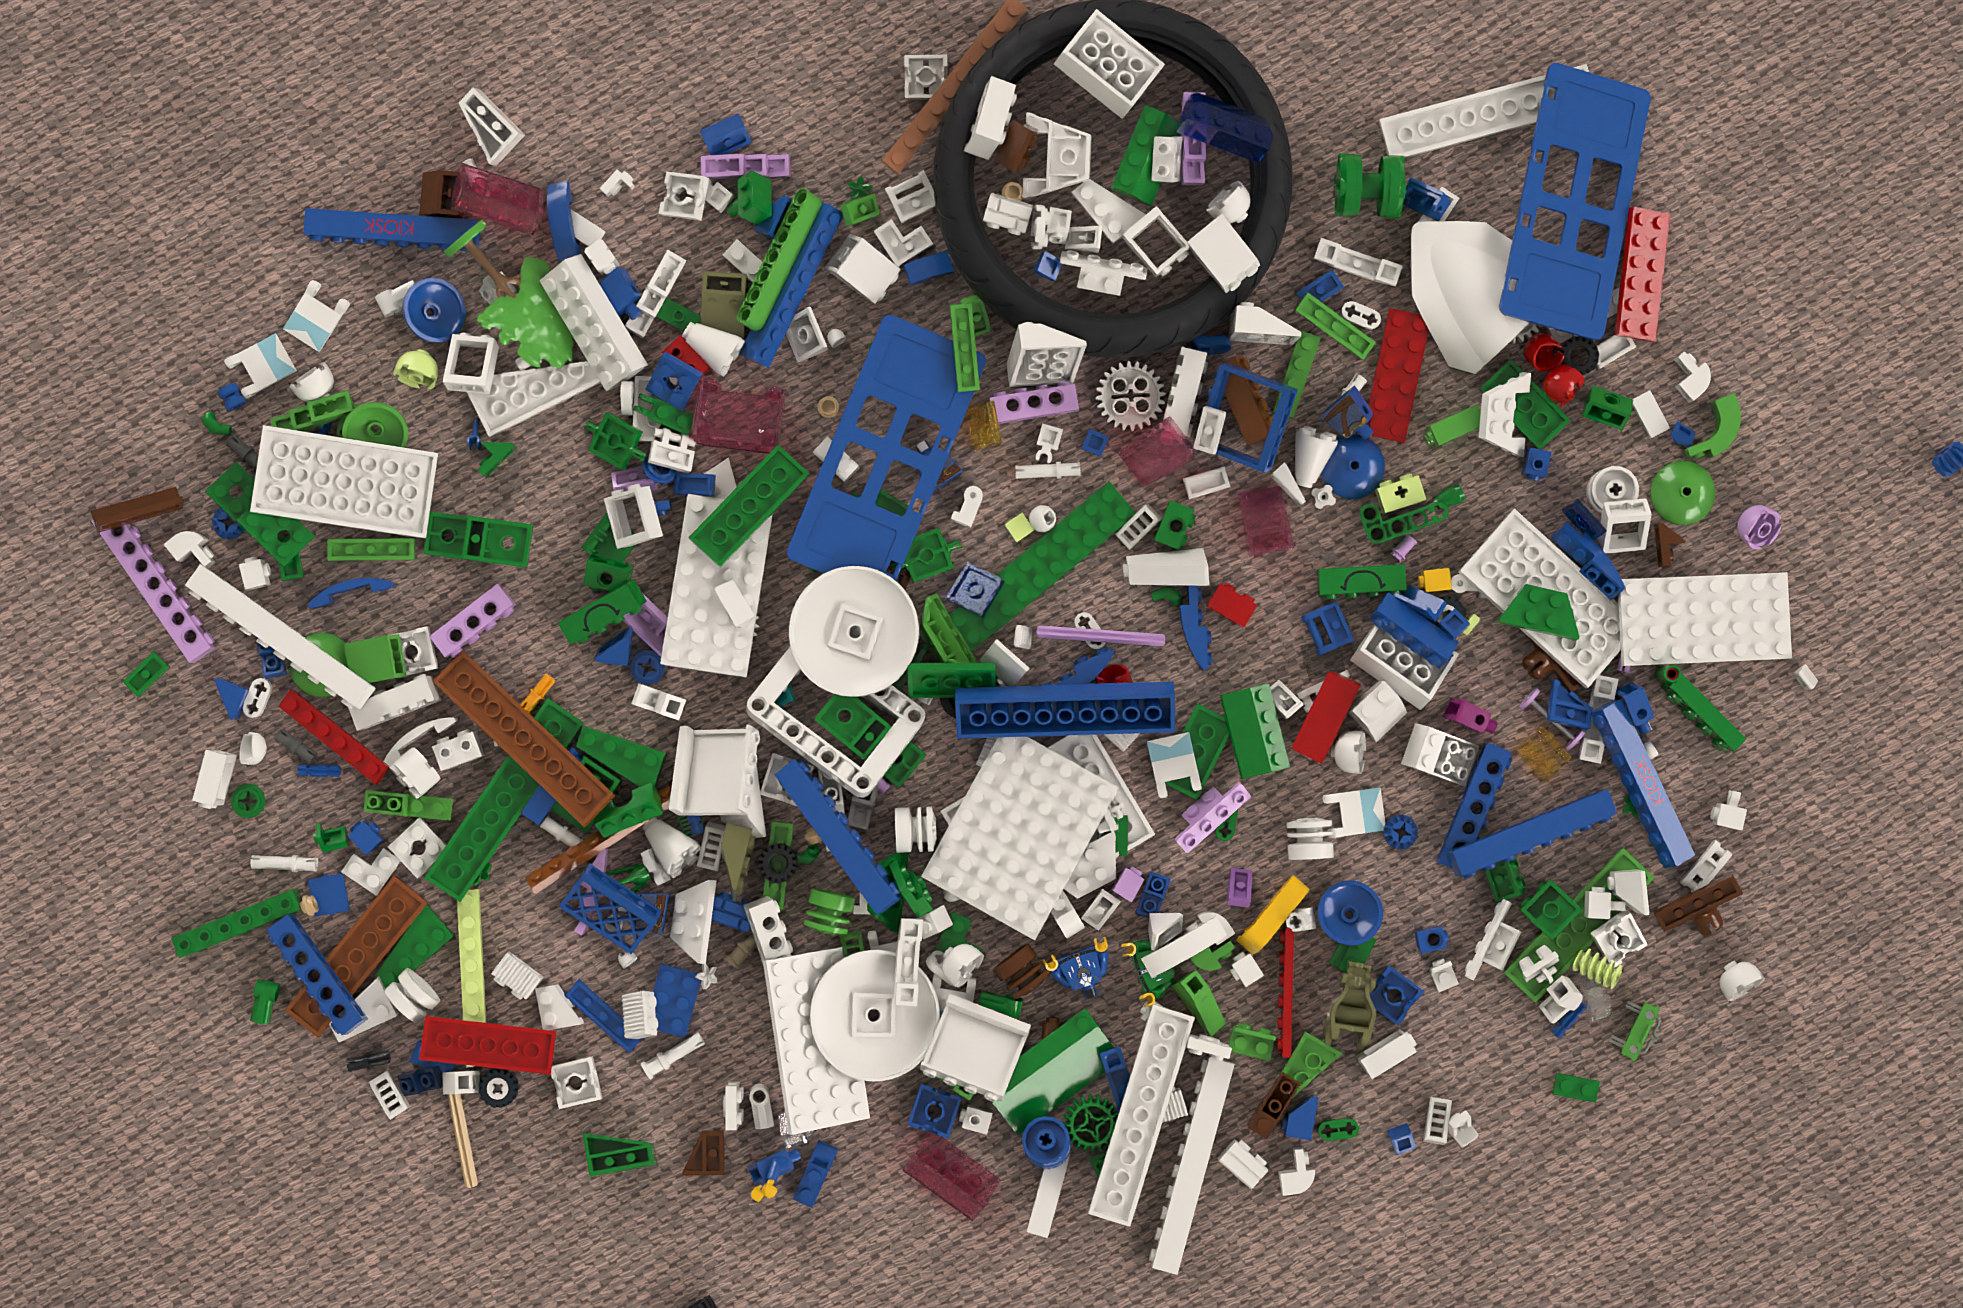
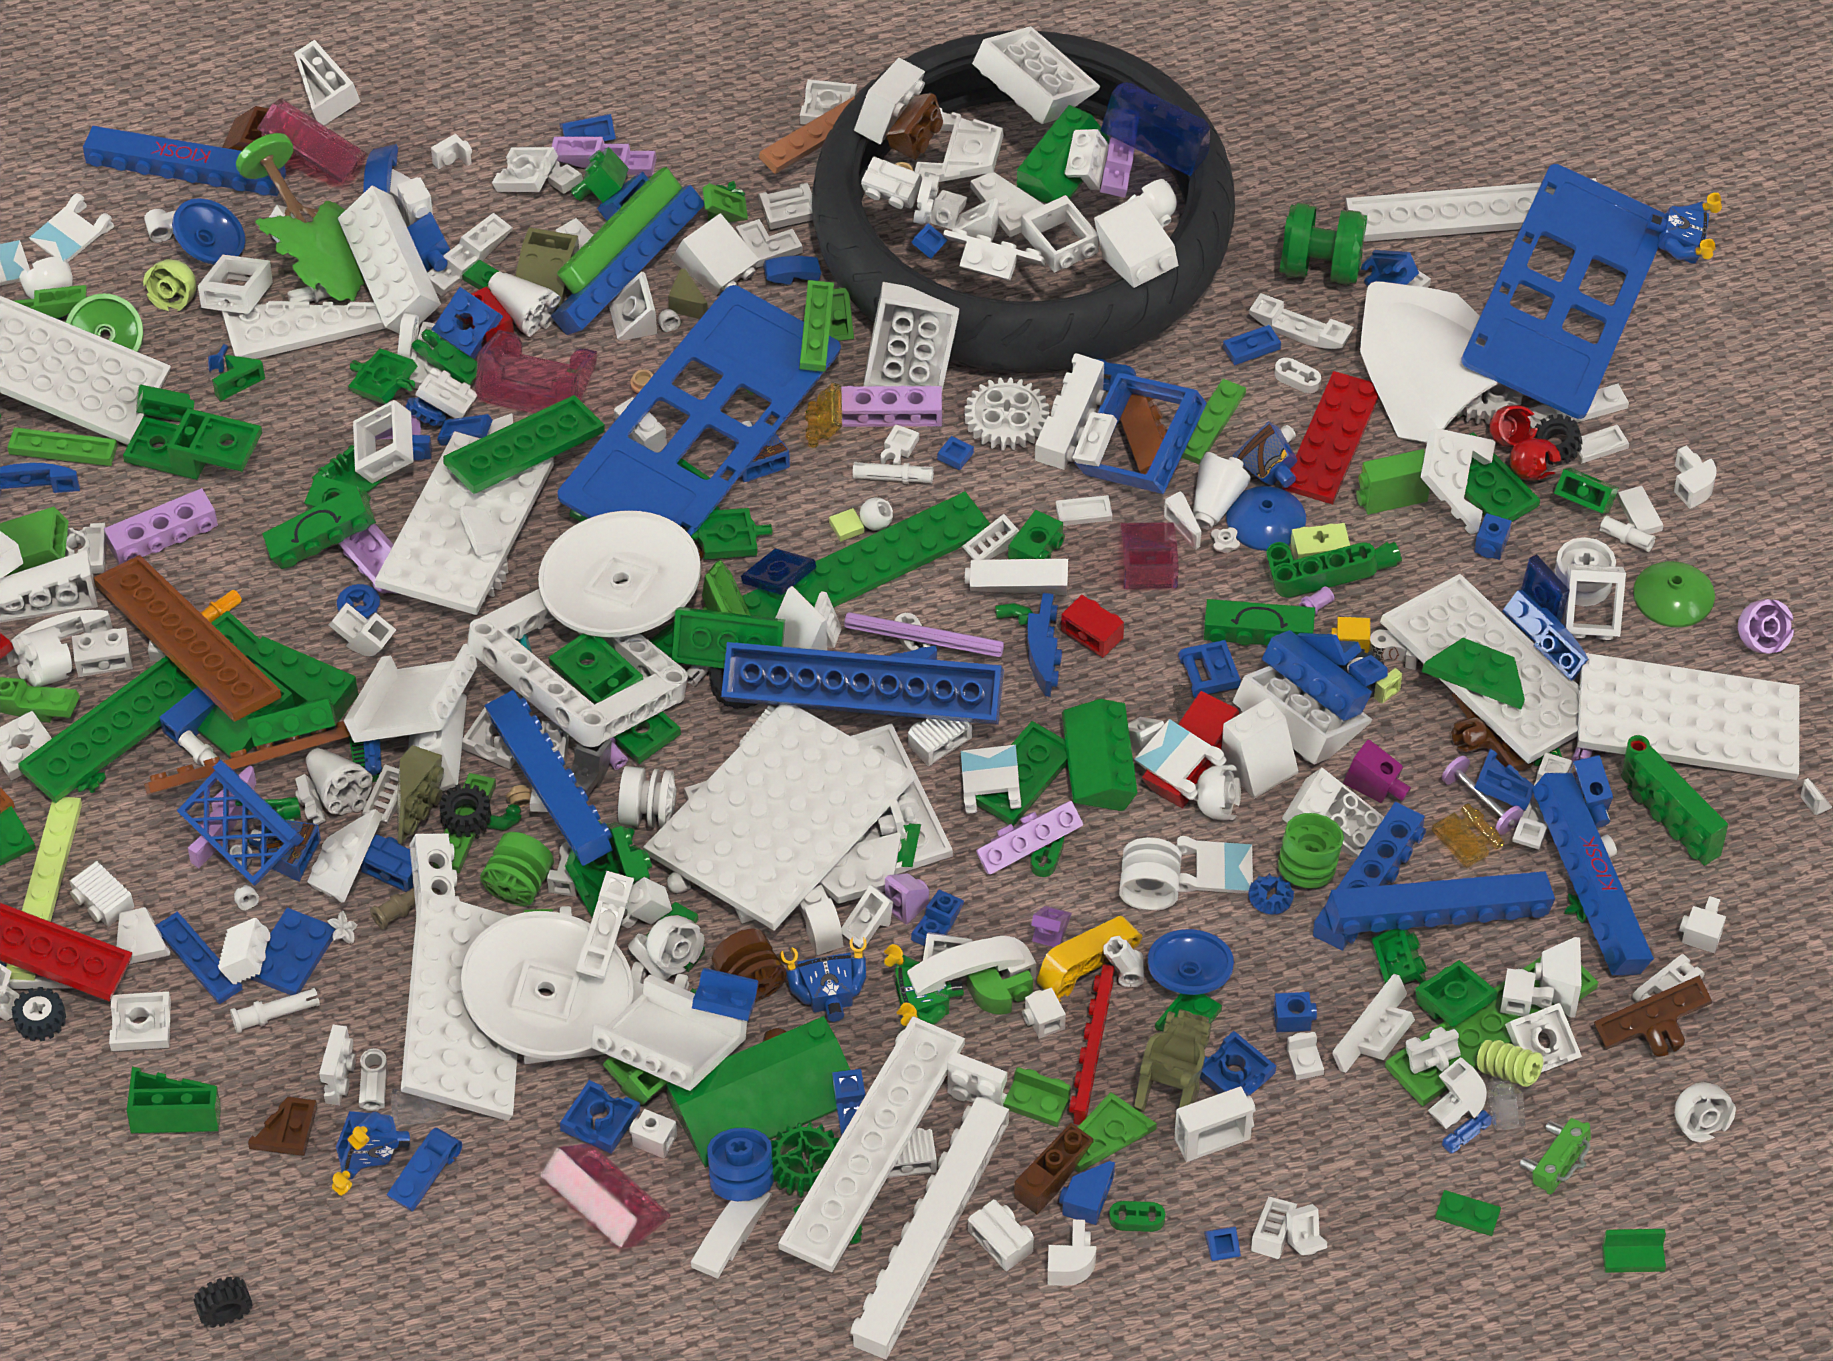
camera: 10 degrees right, 35 degrees down
(442, 494) = (162, 403): none -> green panel
(616, 650) = (329, 572): blue slope -> none
(846, 314) = (686, 297): none -> olive slope
(972, 501) = (788, 496): white leg -> none
(1011, 1013) = (725, 994): none -> blue bracket
(1158, 452) = (1028, 461): clear pink slope -> none
(1200, 1001) = (971, 1019): bright green slope -> none
(1259, 326) = (1174, 345): white slope -> none
(1315, 730) = (1175, 754): none -> white flag
(1334, 326) = (1264, 374): bright green plate -> none
(1431, 787) = (1310, 850): none -> bright green wheel
(1642, 274) = (1642, 374): plate -> none
(1642, 441) = (1627, 533): none -> white pin
(1664, 537) = (1648, 633): reddish brown slope -> none
(1666, 115) = (1685, 229): none -> blue torso
(1682, 435) = (1676, 532): blue plate -> none
(1698, 1104) = (1634, 1250): none -> green panel
(1727, 426) = (1723, 543): bright green arch -> none

